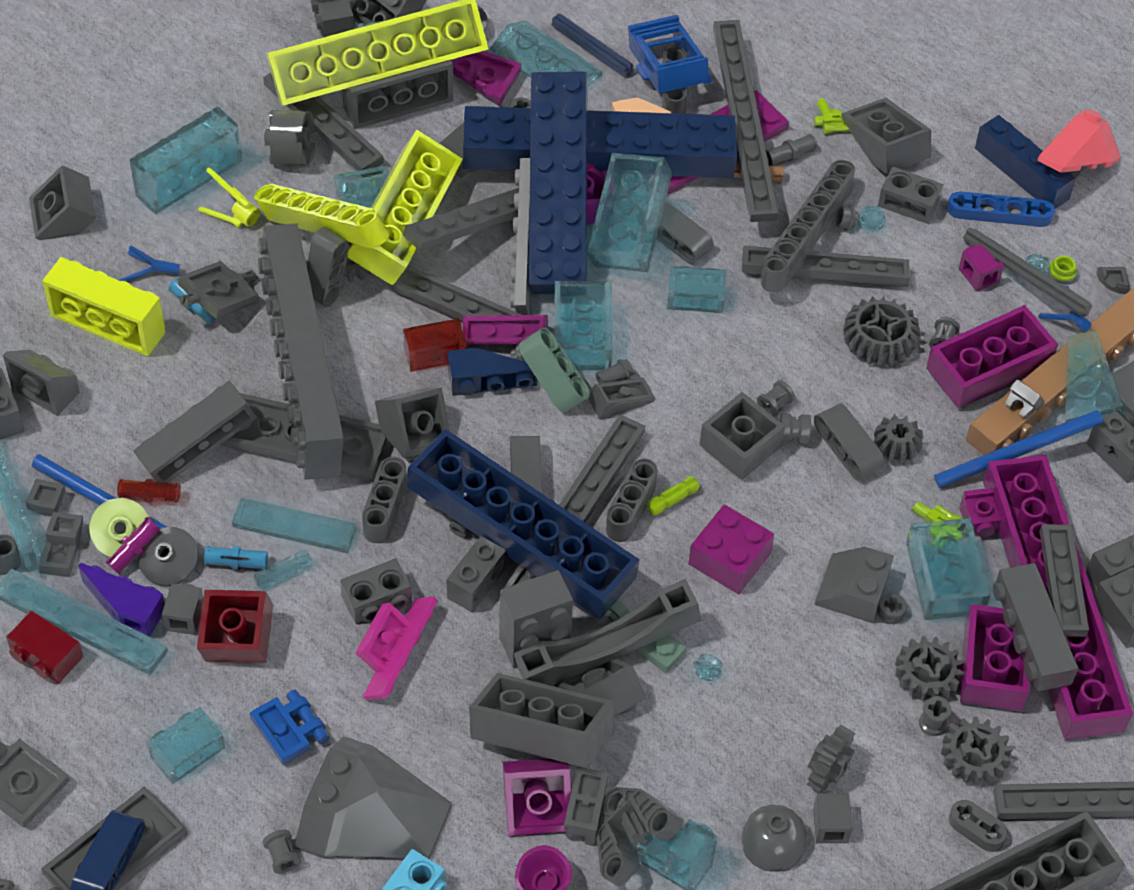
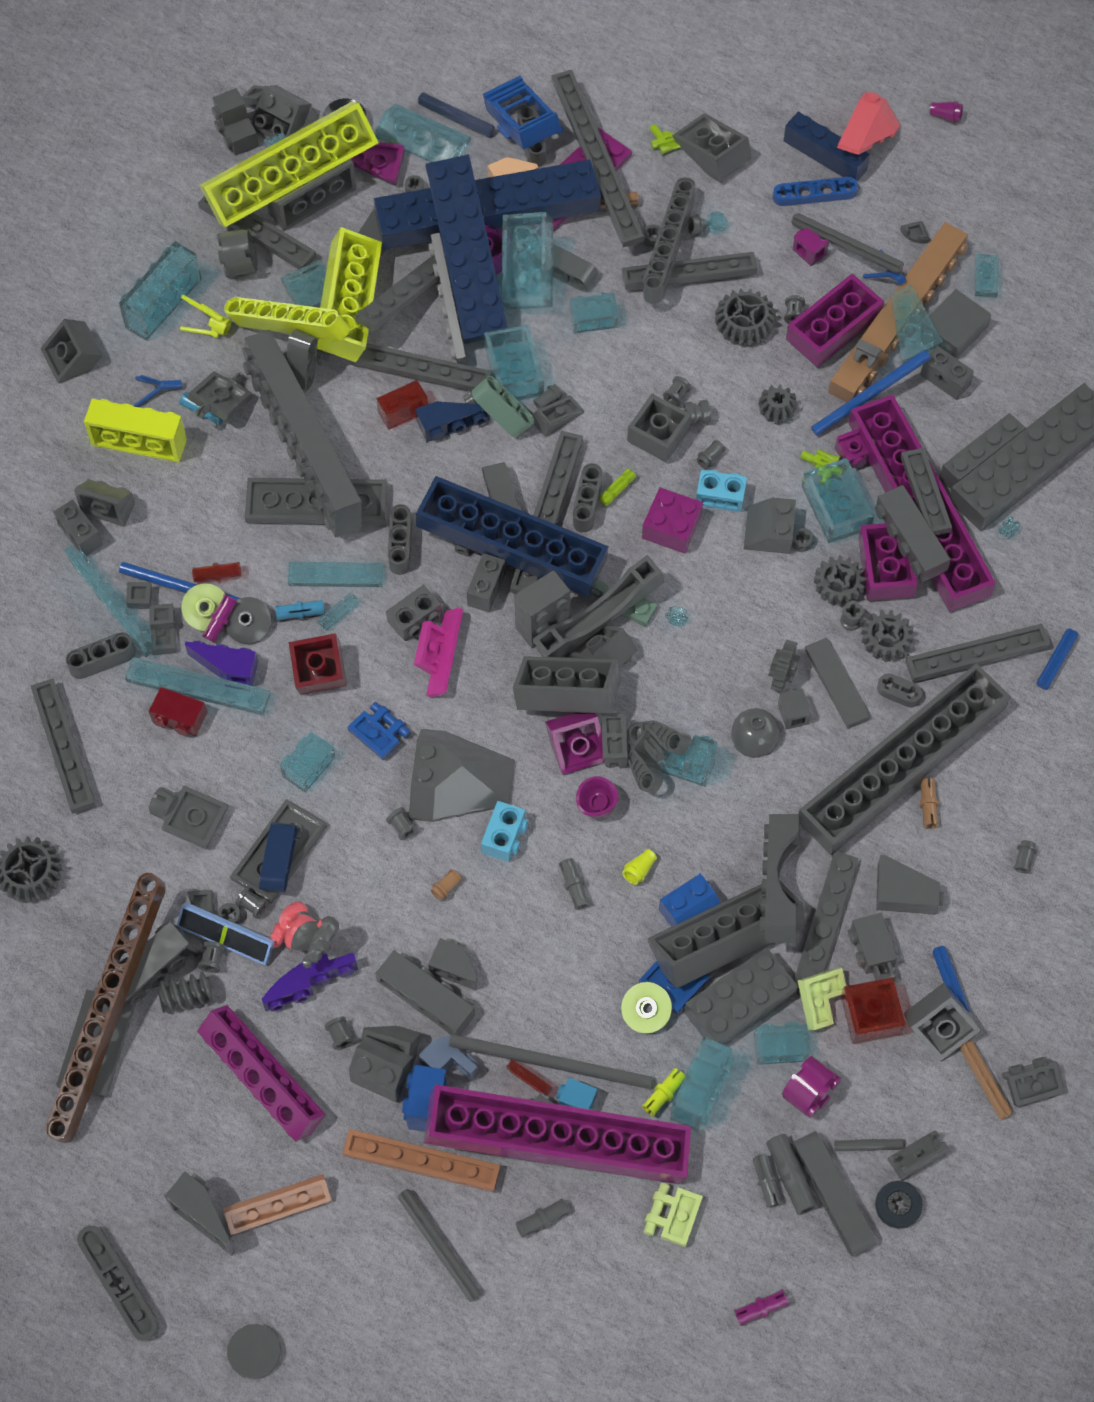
camera: 10 degrees left, 10 degrees up
(183, 608) = (273, 659): dark grey brick -> none
(195, 433) = (240, 519): dark grey brick -> none
(413, 419) = (405, 471): dark grey slope -> none
(501, 328) = (453, 380): magenta tile -> none
(785, 212) = (650, 229): none -> dark grey bush
(791, 149) = (639, 175): dark grey pin -> none
(796, 483) = (706, 458): none -> dark grey pin
(800, 532) = (720, 496): none -> medium azure brick
(849, 442) = (741, 414): dark grey beam -> none
(897, 798) = (837, 683): none -> dark grey tile
(910, 195) = (738, 193): dark grey brick -> none
(1039, 262) = (854, 232): clear light blue plate -> none
(1063, 268) = (877, 228): lime plate -> none

